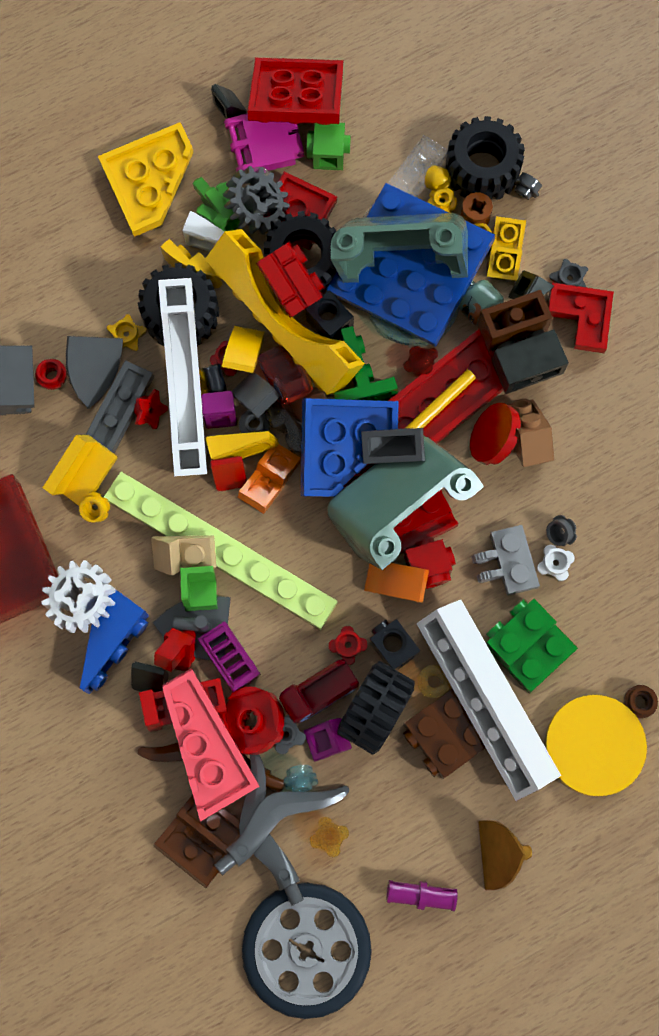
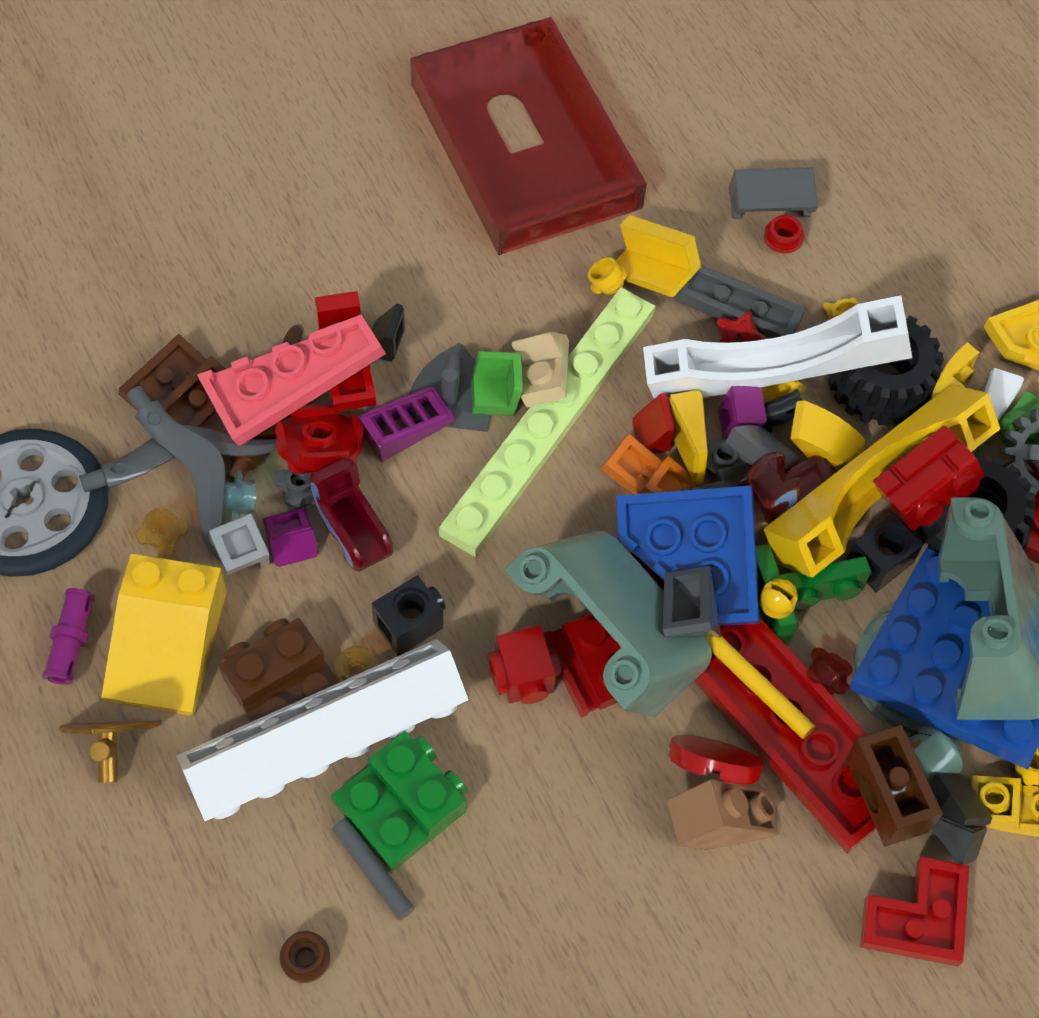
camera: 85 degrees right, 15 degrees down
(67, 589) = (485, 242): white gear -> none
(92, 365) = (795, 268): dark grey shield -> none
(109, 640) = (442, 290): blue slope -> none
(176, 650) = (418, 355): red piece -> none
(348, 773) = (239, 544): none -> light grey panel
(357, 644) = (414, 550): red plate -> none
(376, 707) = (320, 573): black tyre -> none
(384, 391) = (774, 602): none -> yellow hinge
(397, 581) = (497, 618): orange slope -> none
(419, 824) = (163, 634): none -> yellow slope
(513, 283) = (959, 800): none -> pearl dark grey slope
(513, 559) = (526, 787): light grey hinge -> none
(529, 360) = (832, 810): pearl dark grey brick -> none
(557, 535) = (569, 855): dark grey plate -> none
(564, 558) = (517, 834): white plate -> none
(570, 269) = (997, 902): dark grey plate -> none
(576, 661) = (373, 869): none -> dark grey piece
(596, 745) = (246, 886): yellow tile -> none

